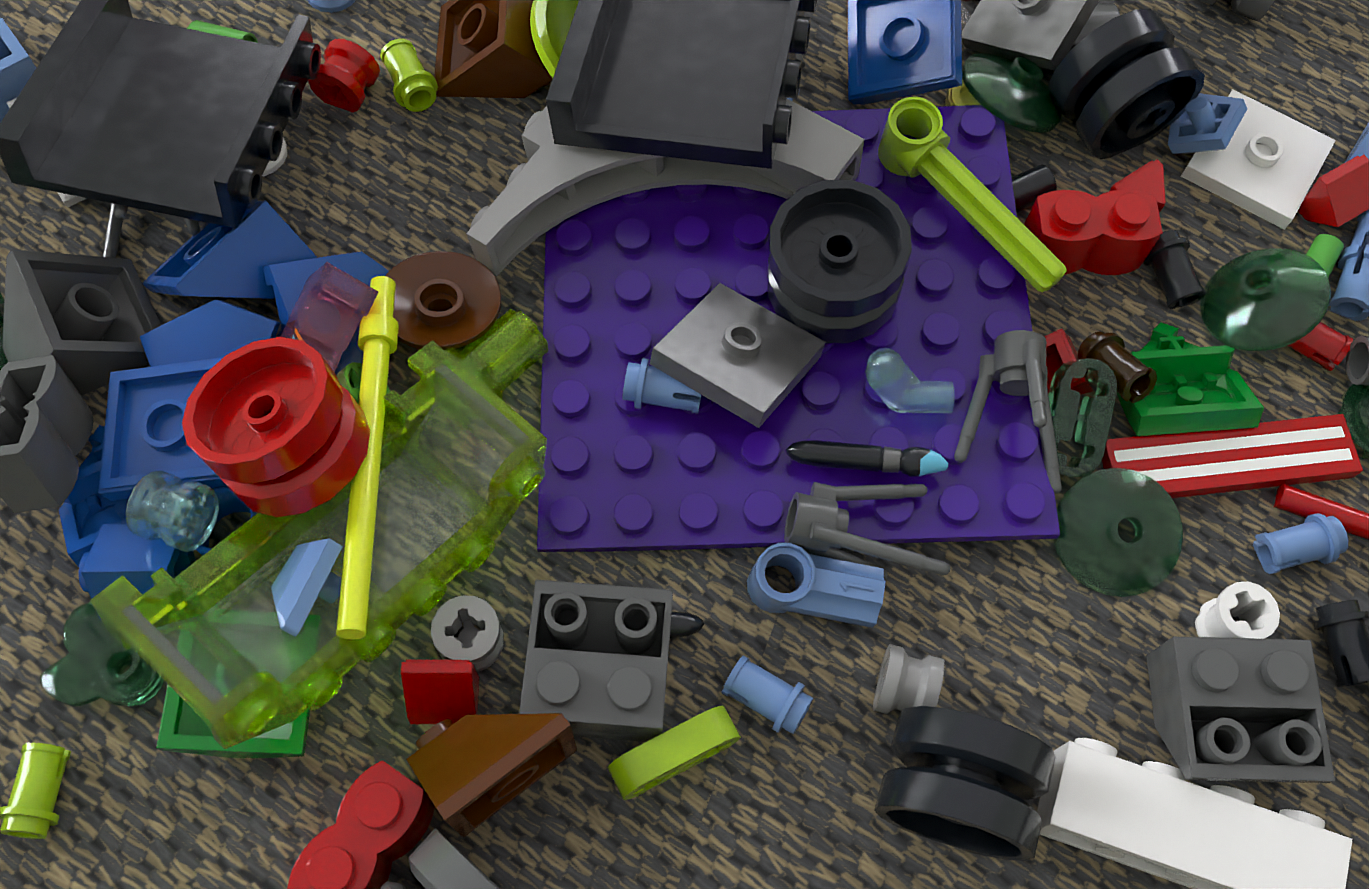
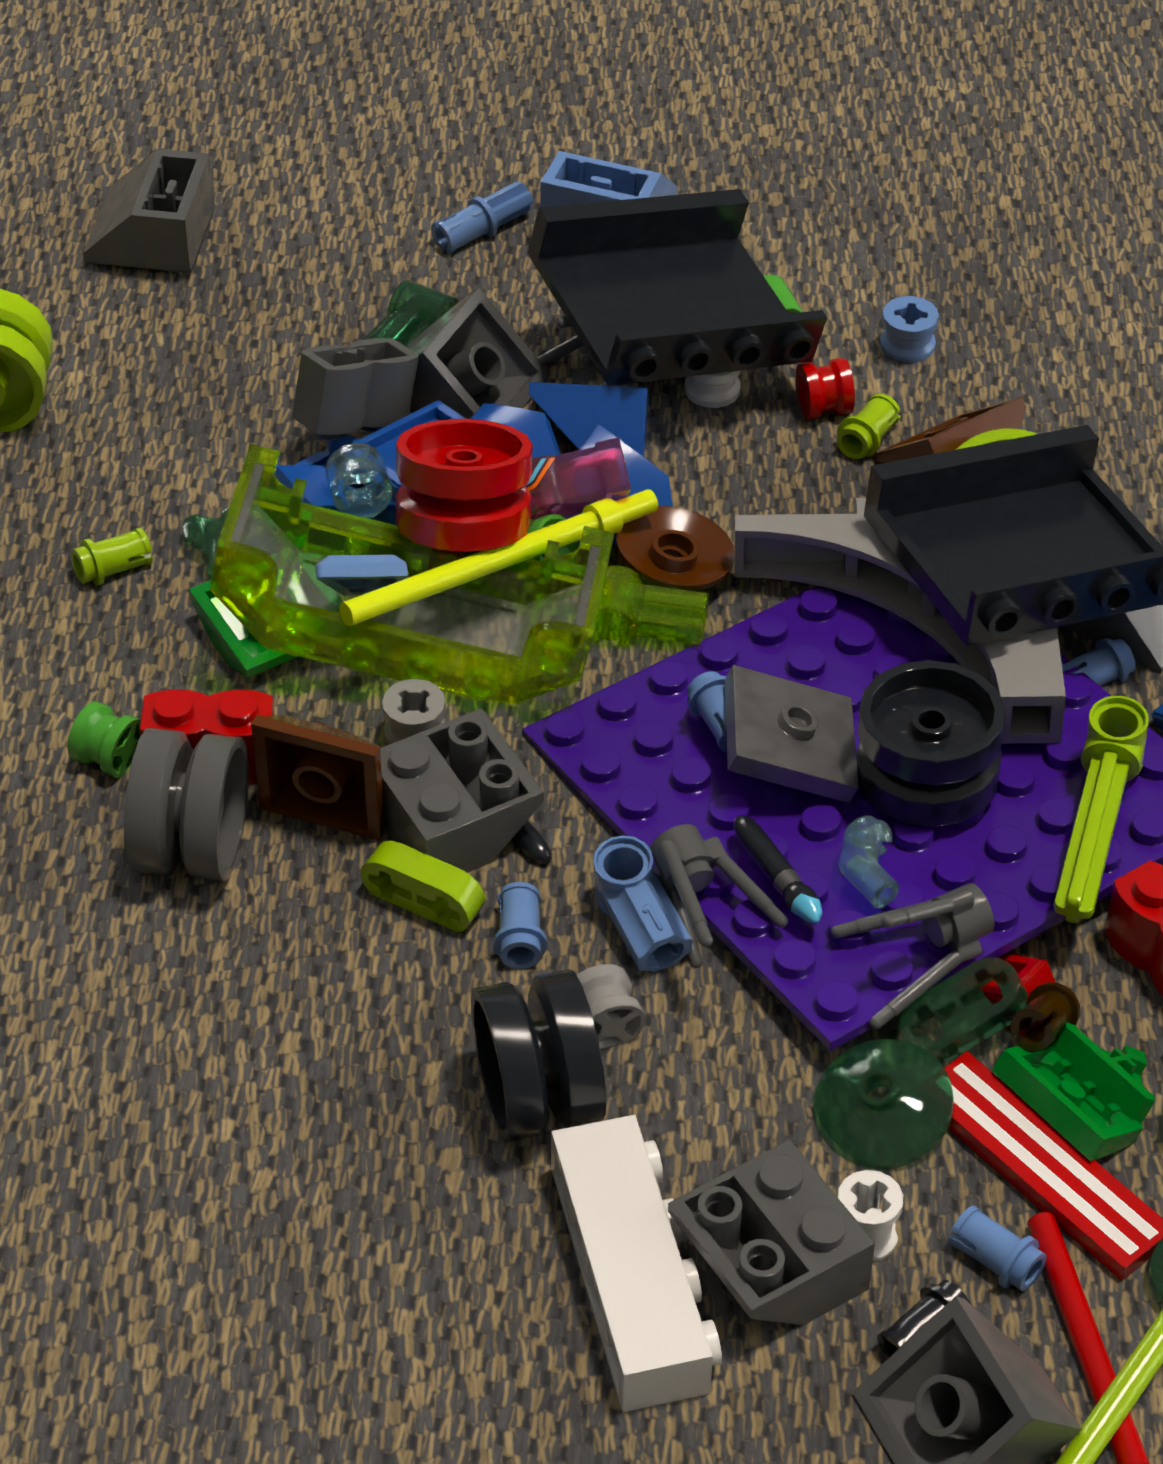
camera: 60 degrees right, 20 degrees down
(439, 690) = (361, 713): red slope -> none

